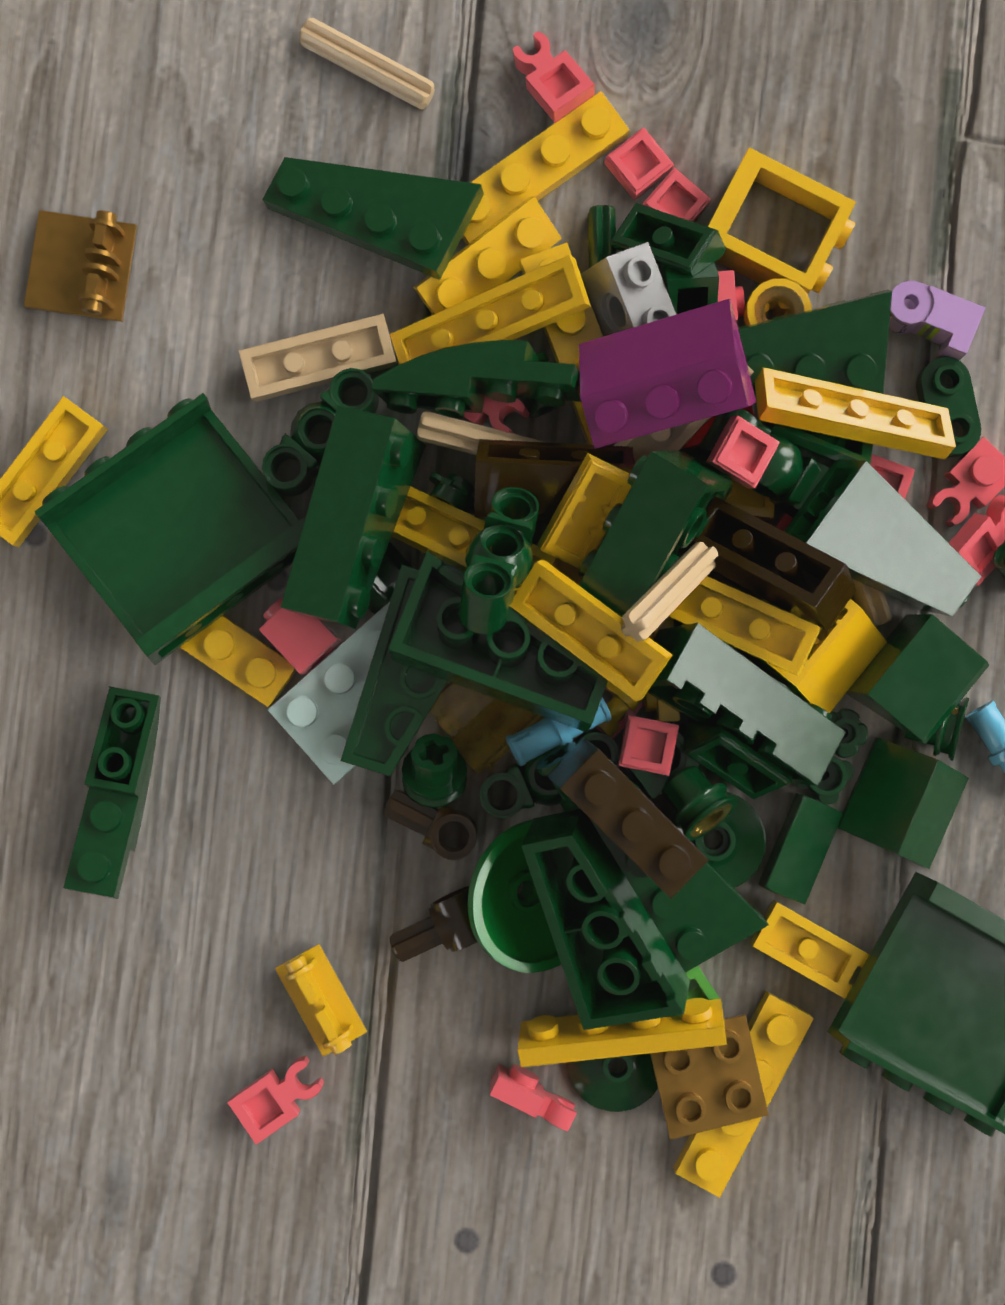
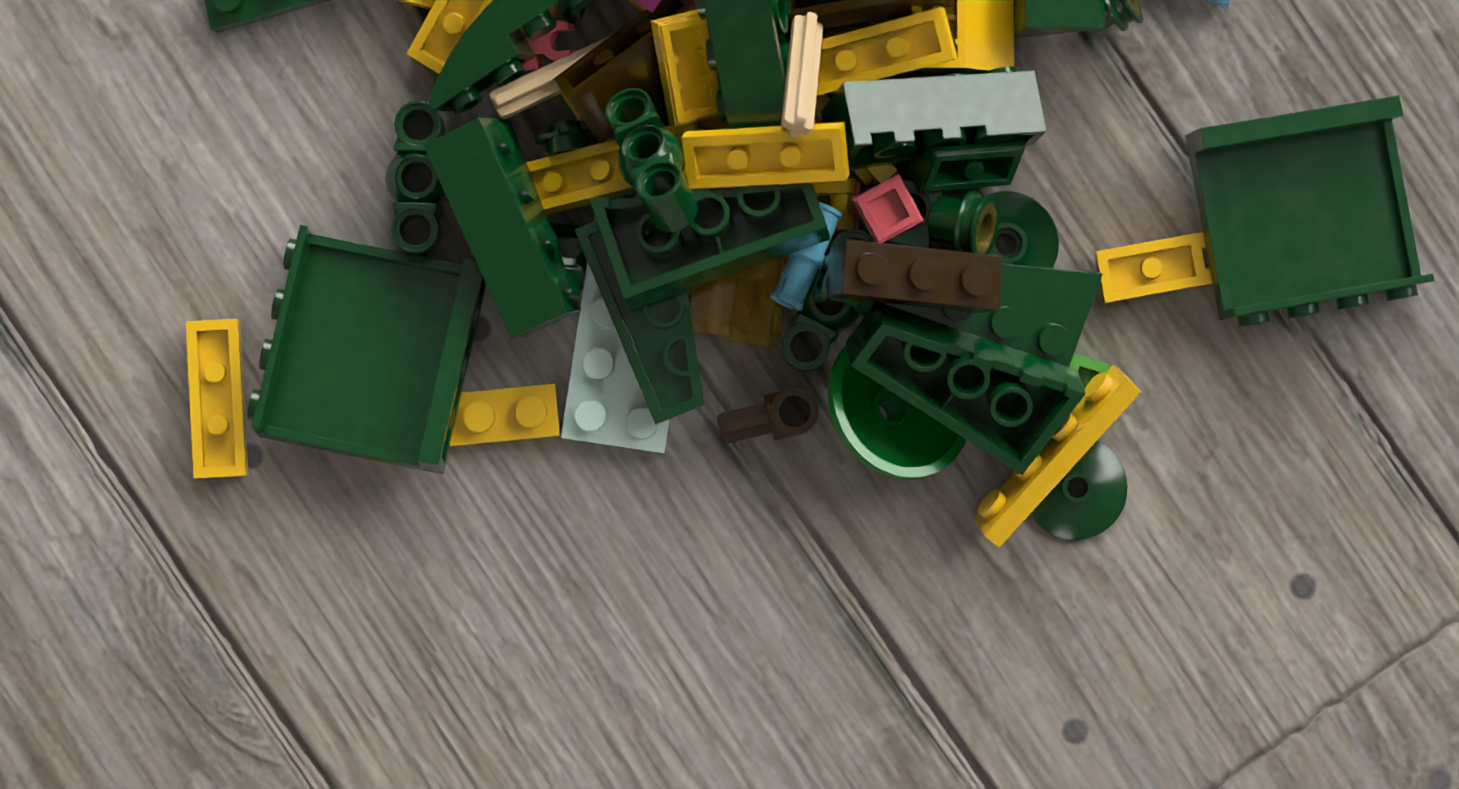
camera: 35 degrees left, 0 degrees up
(81, 265) = (106, 205): pearl gold hinge -> none
(116, 792) = (494, 603): dark green slope -> none
(270, 1102) = (824, 749): coral plate -> none
(298, 637) = (536, 358): coral brick -> none
(317, 357) = (364, 120): tan plate -> none
(321, 1000) = (798, 634): yellow hinge -> none
(434, 772) = (736, 374): dark green piece -> none
(446, 925) = (849, 486): dark brown axle -> none
(522, 1091) = (1015, 568): coral plate -> none
(710, 1084) = (1158, 436): pearl gold hinge -> none
(776, 1035) = (1197, 427): yellow plate -> none
(800, 848) = (1082, 193): dark green slope -> none
(838, 774) = (1064, 127): dark green plate -> none
(856, 732) = (1048, 62): dark green plate -> none
(903, 801) = (1134, 87): dark green slope -> none

